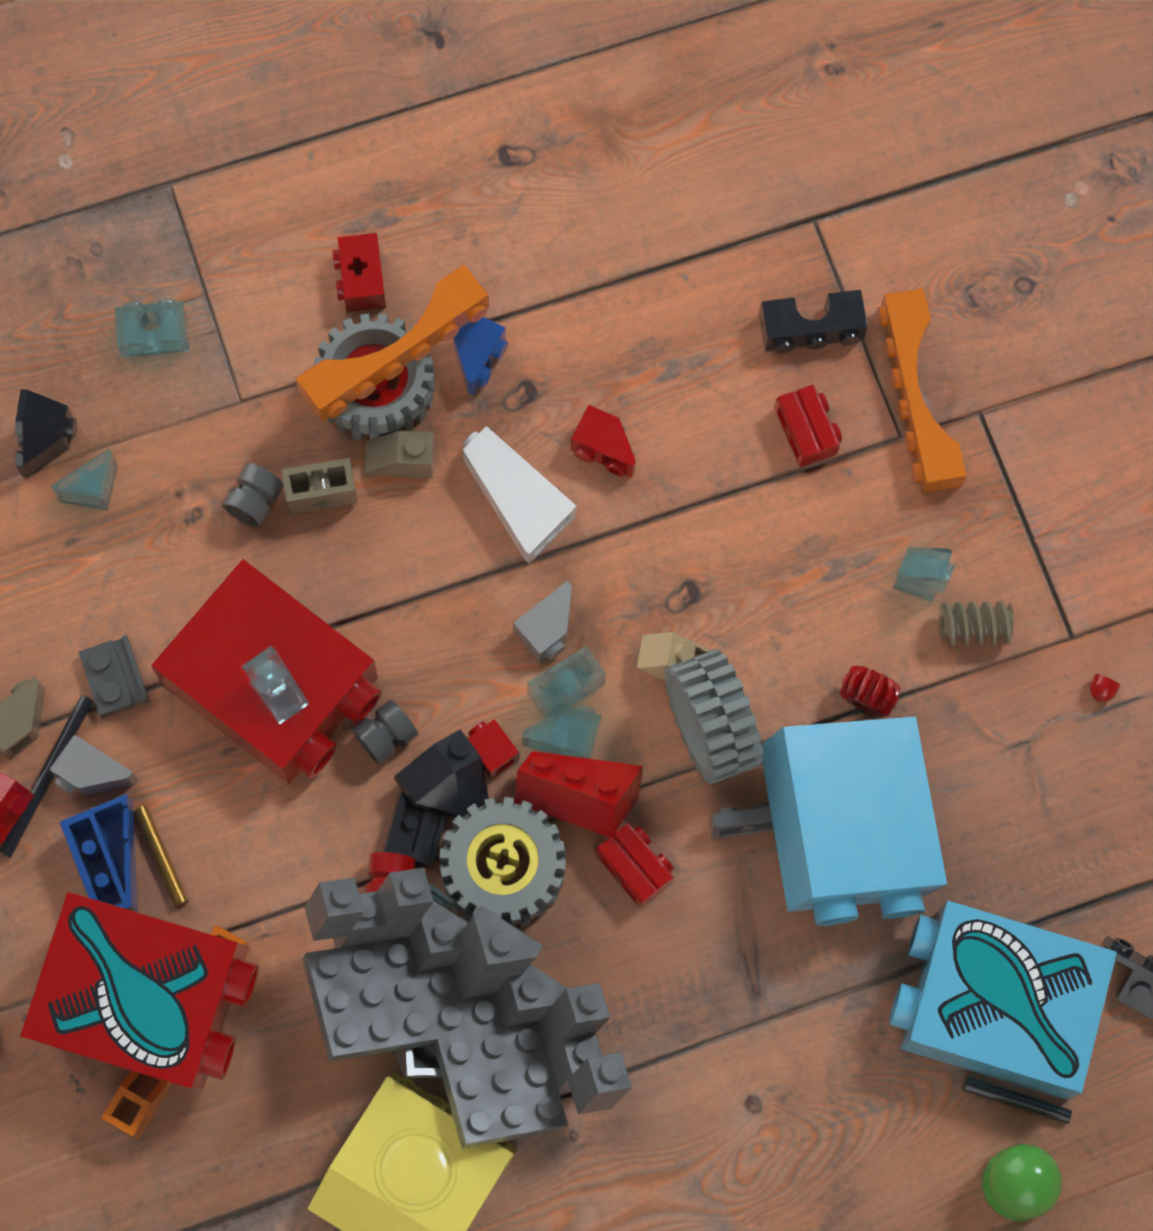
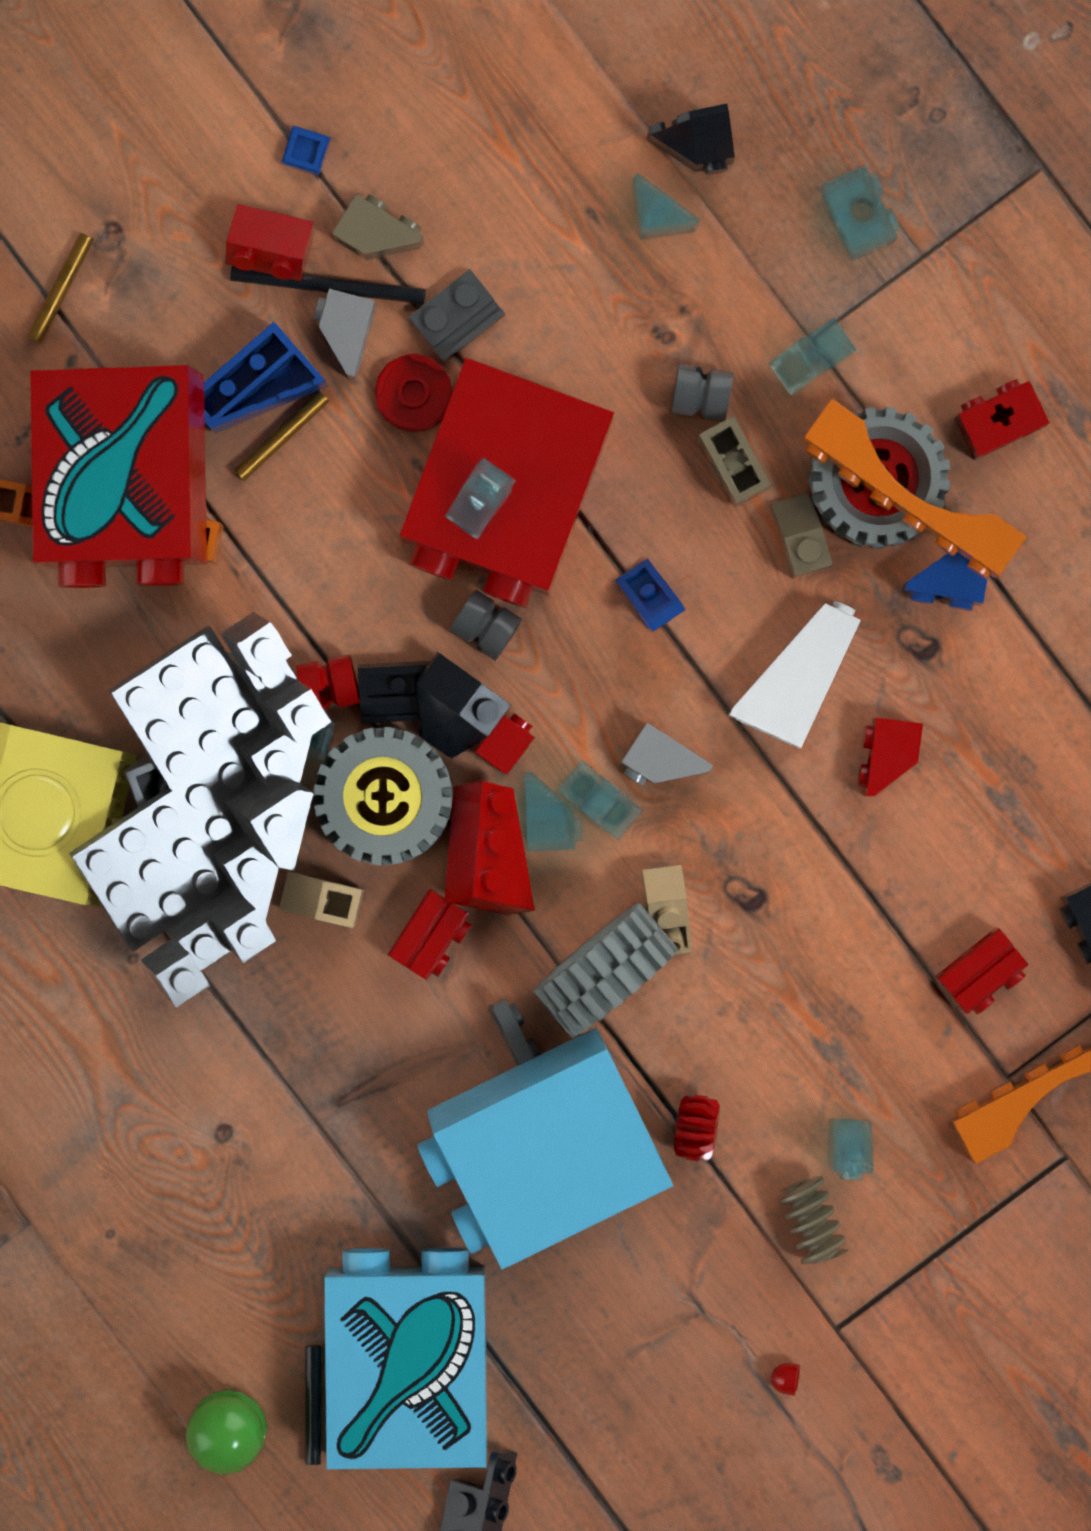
camera: 80 degrees right, 15 degrees up
(165, 733) = (413, 392): none -> red tile
(255, 403) = (812, 356): none -> clear light blue slope
(408, 590) = (650, 595): none -> blue slope
(575, 946) = (321, 899): none -> tan slope

